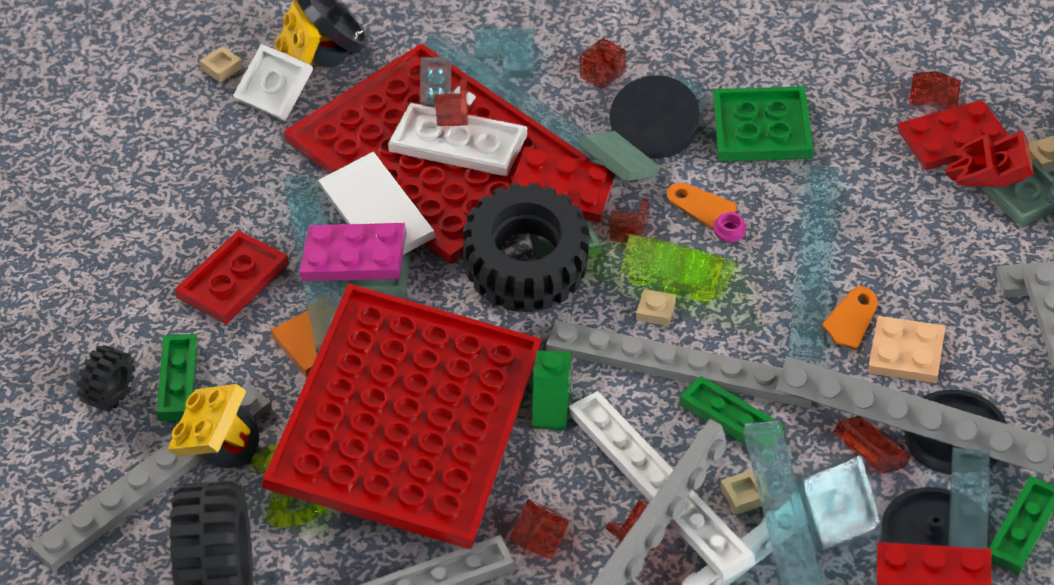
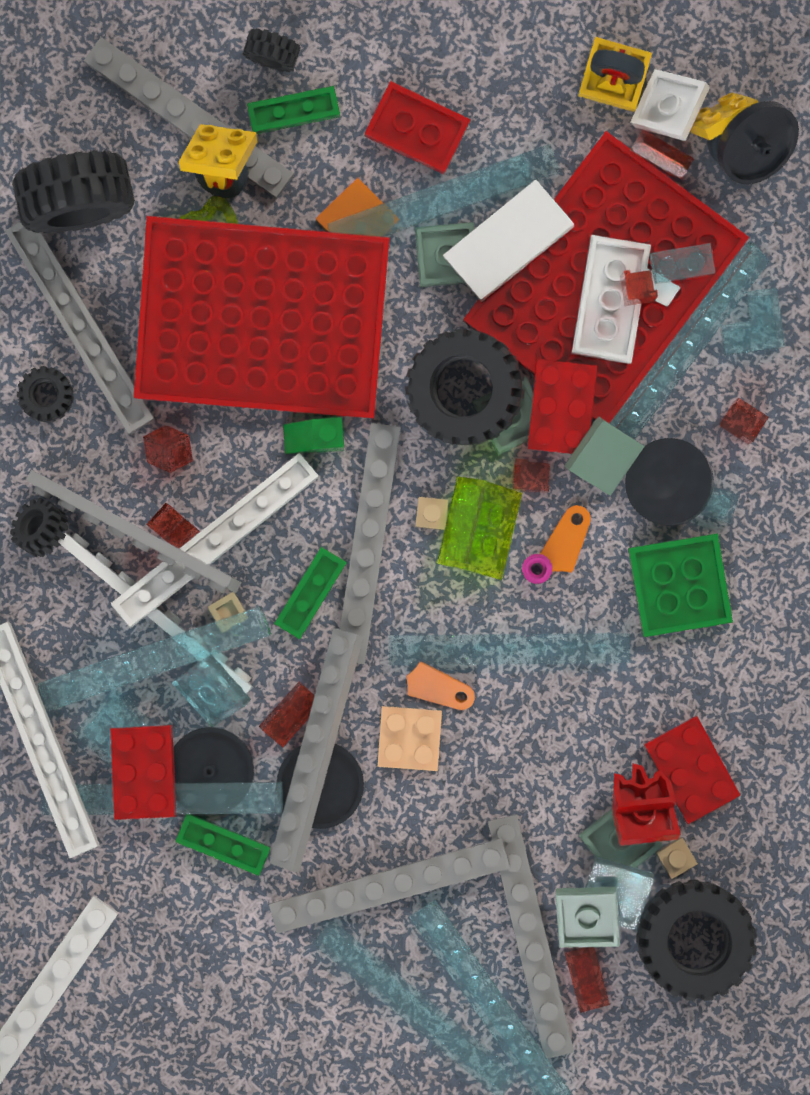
camera: 75 degrees right, 40 degrees up
(221, 64) = (699, 46): tan plate -> none
(227, 120) = (615, 74): none -> yellow plate
(328, 91) = (662, 154): none -> clear red plate
(353, 252) = (443, 232): dark pink plate -> none
(934, 88) = (745, 749): clear red panel -> none

